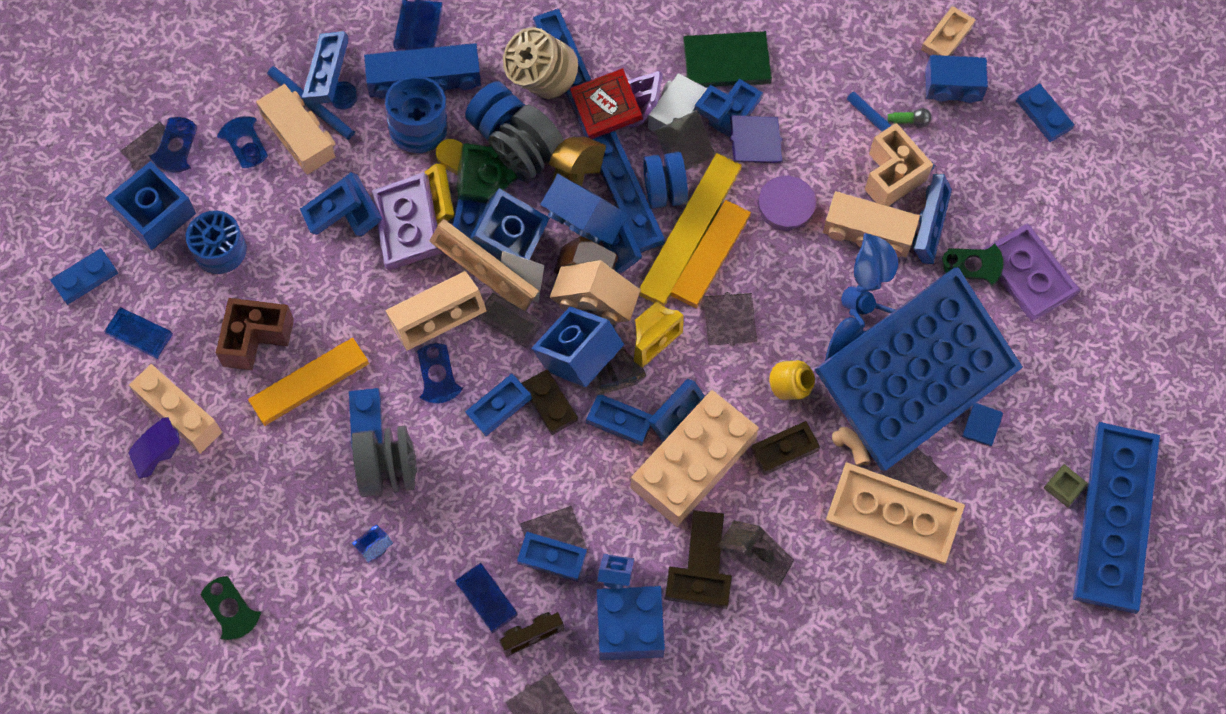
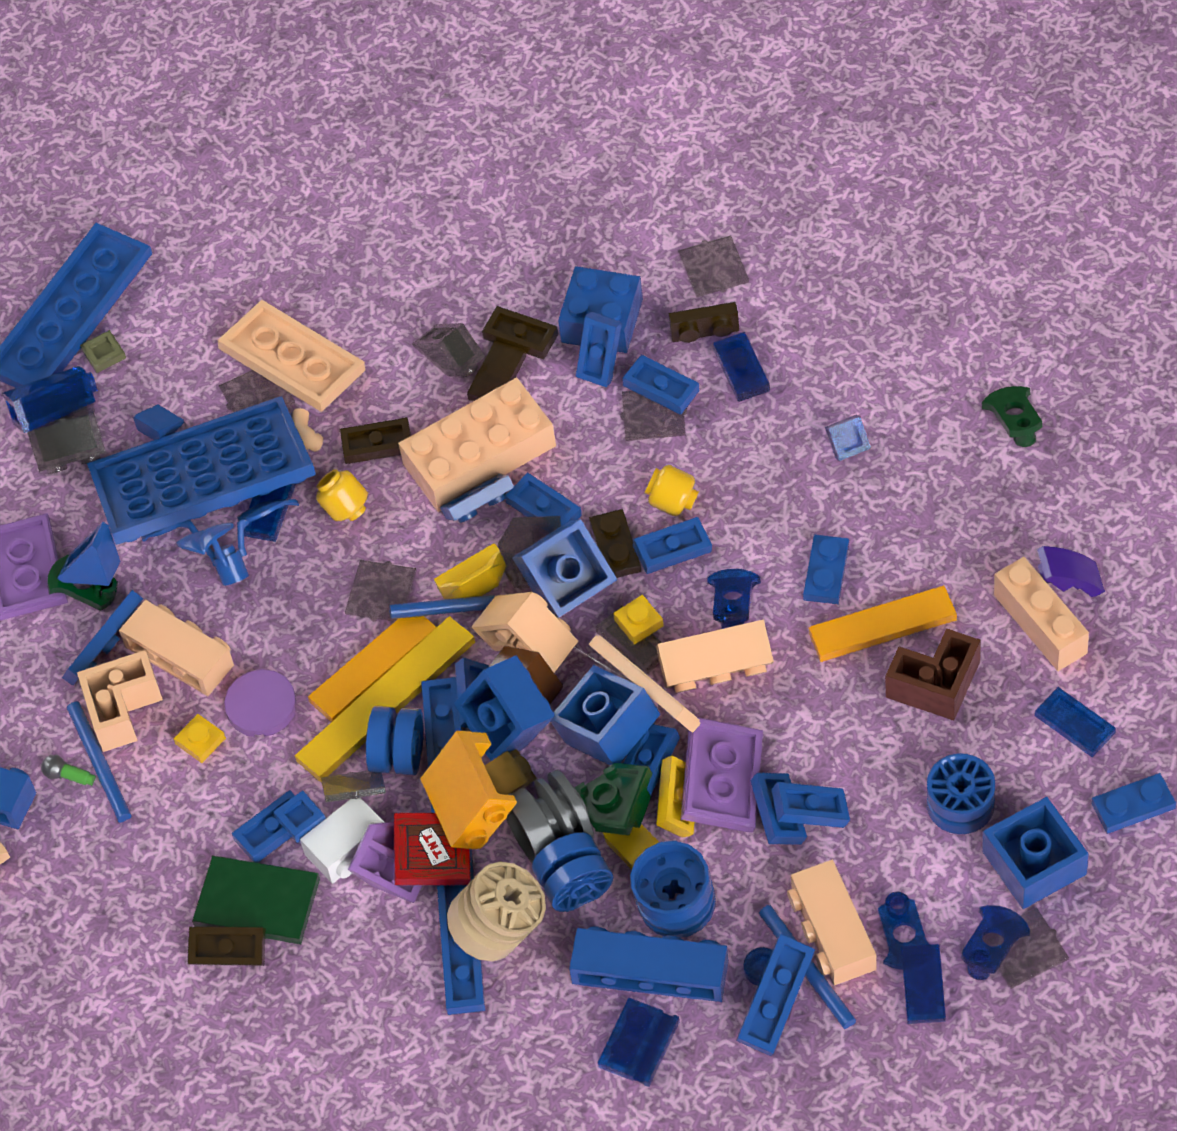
camera: 155 degrees left, 10 degrees down
(222, 104) = (923, 984): none -> clear blue tile
(383, 461) = (814, 498): dark grey wheel -> none
(507, 329) = (638, 619): none -> yellow plate
(513, 454) = (671, 490): none -> yellow head
(604, 139) = (464, 791): none -> light orange panel
(686, 299) = (439, 607): none -> blue bar
(732, 17) = (226, 946): none -> dark brown plate
(755, 139) = (264, 780): piece -> none
(821, 165) = (199, 738): none -> yellow plate
(973, 261) = (92, 560): none -> blue slope
(1054, 387) = (68, 440): none -> clear smoke slope
(1083, 404) = (50, 398): none -> clear blue slope

